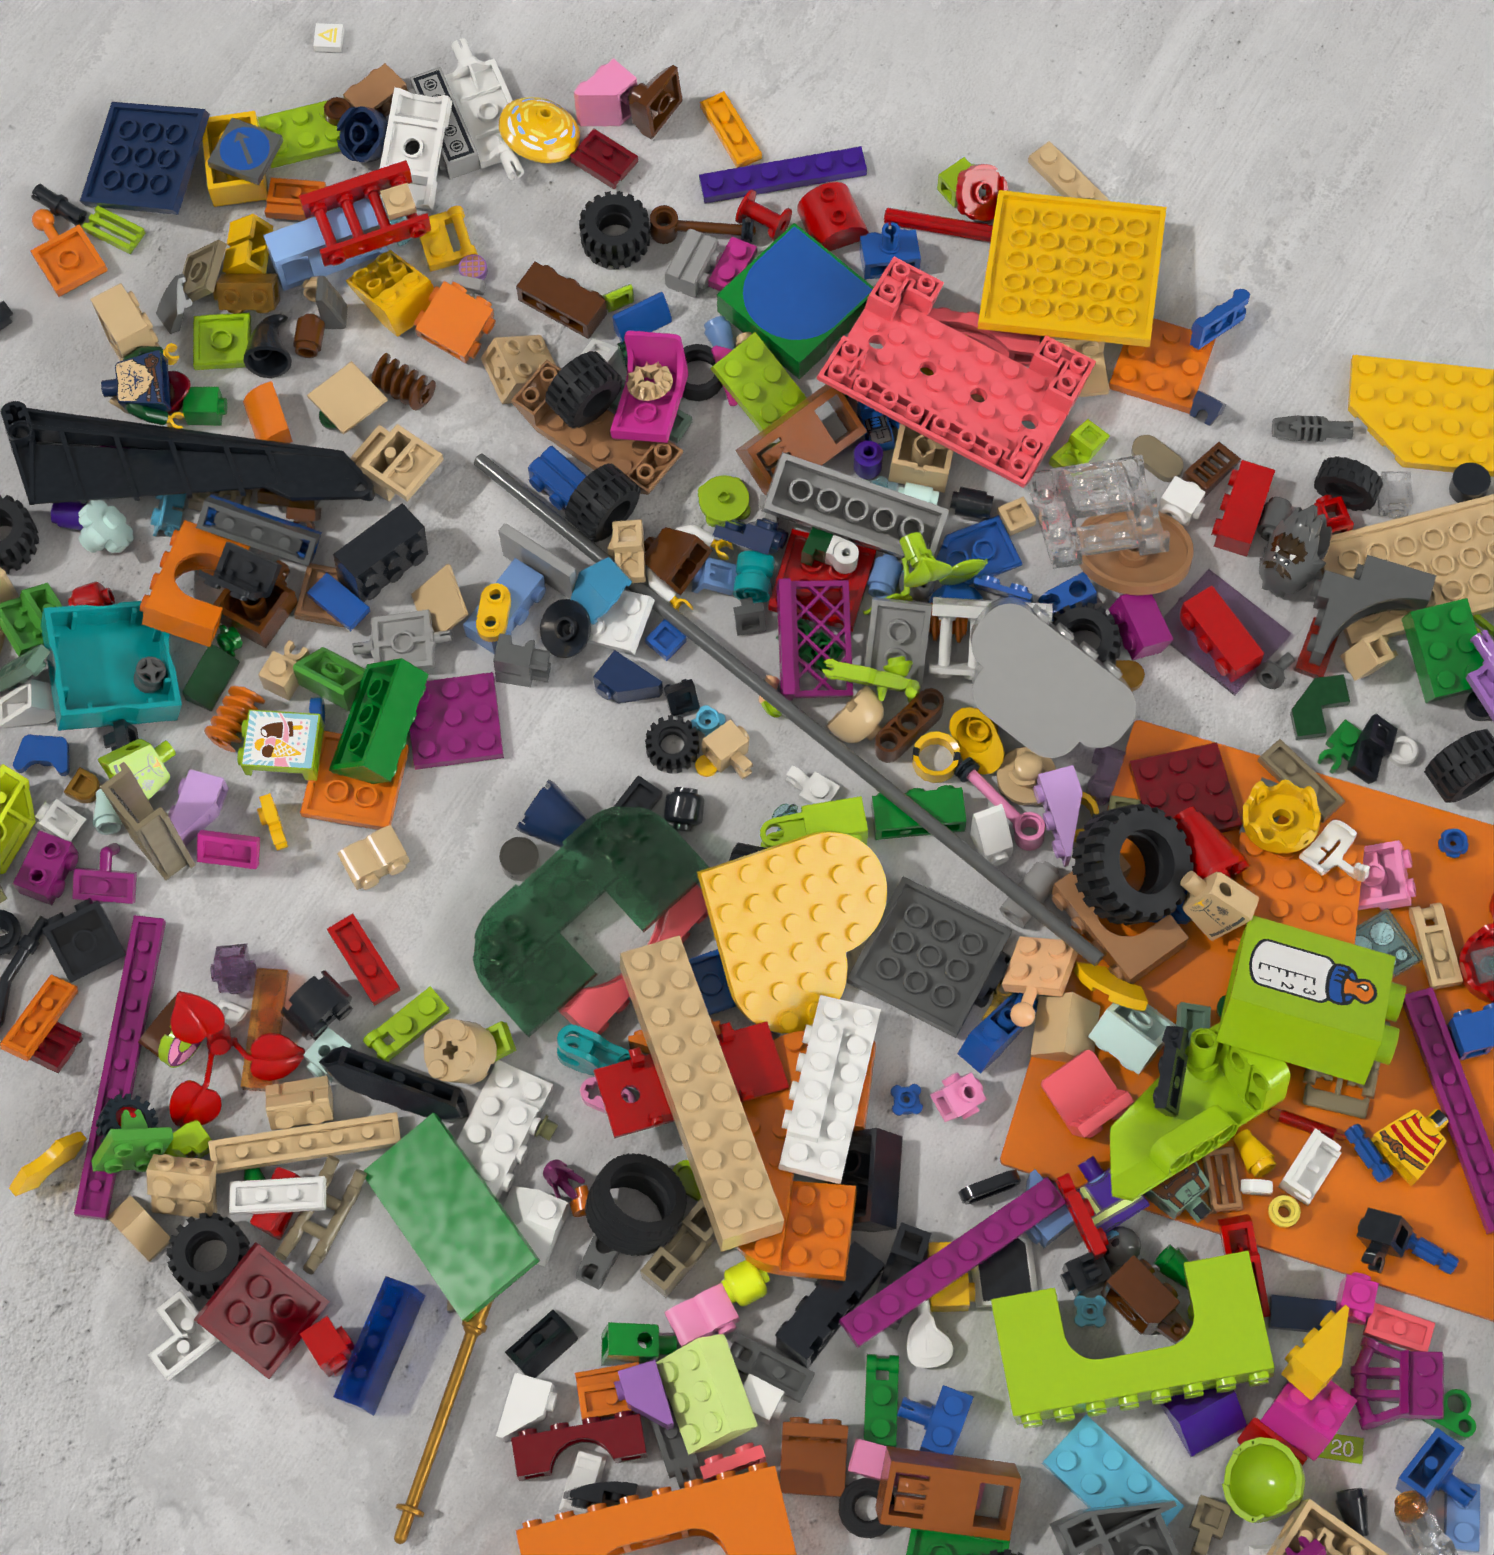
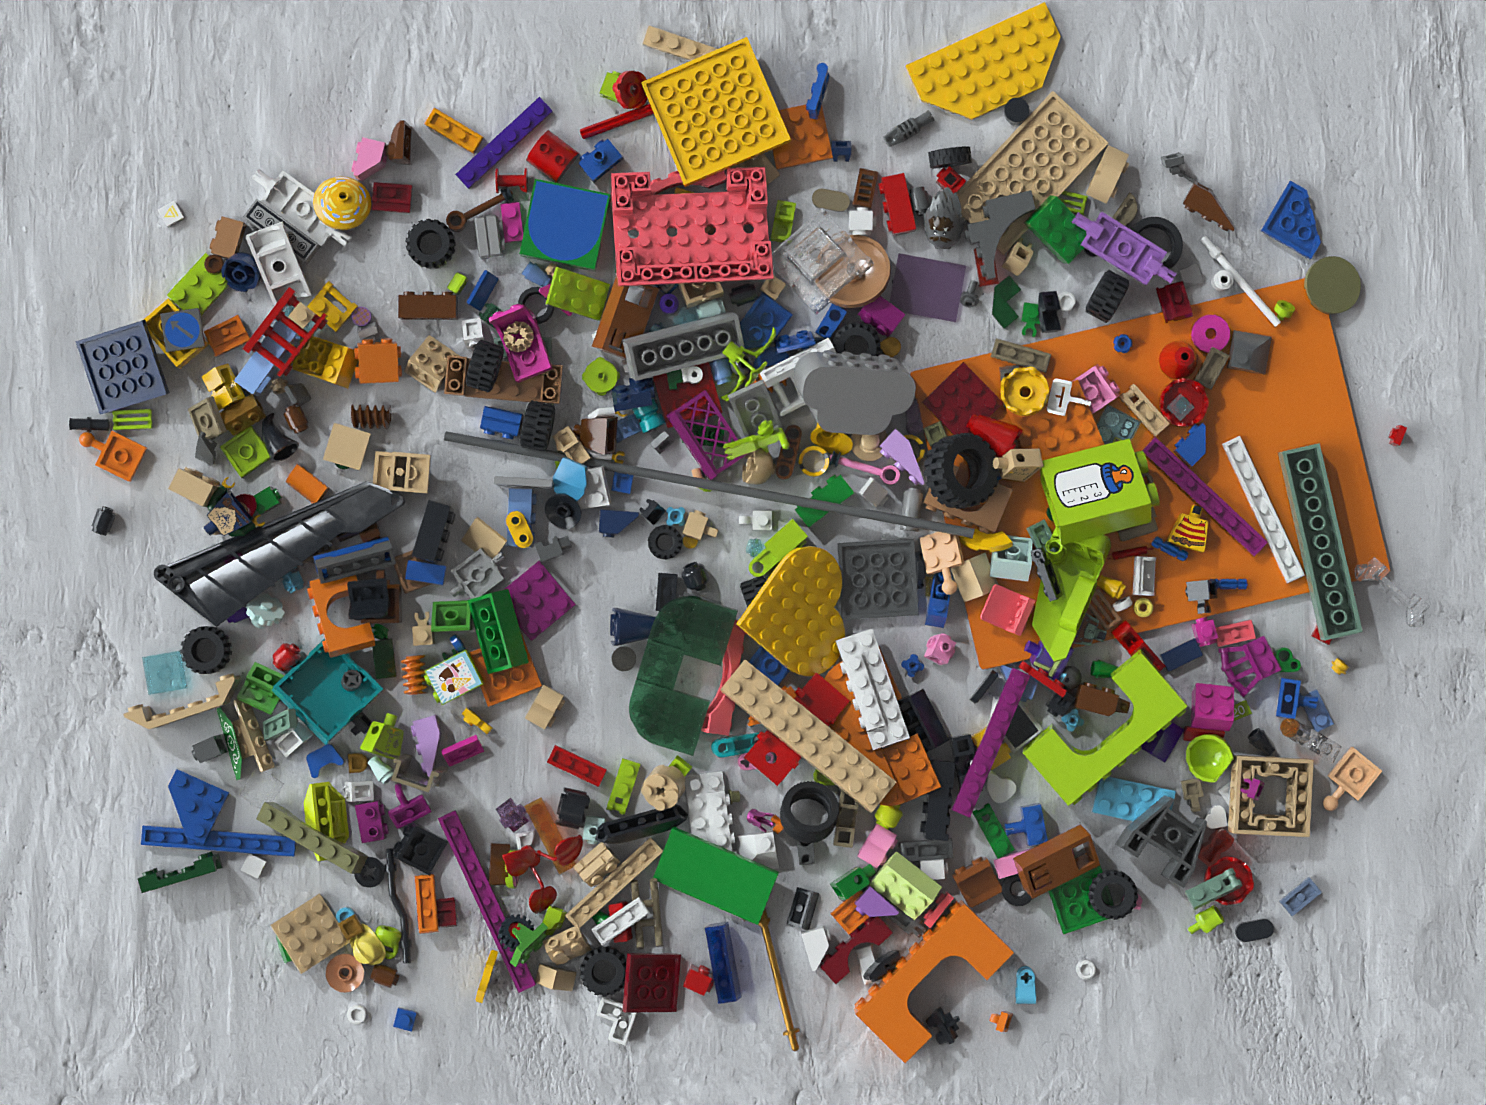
camera: 30 degrees left, 20 degrees up
(1221, 634) = (929, 294): red brick -> none
(1320, 1357) = (1205, 681): yellow slope -> none
(1395, 495) = (978, 144): clear brick -> none

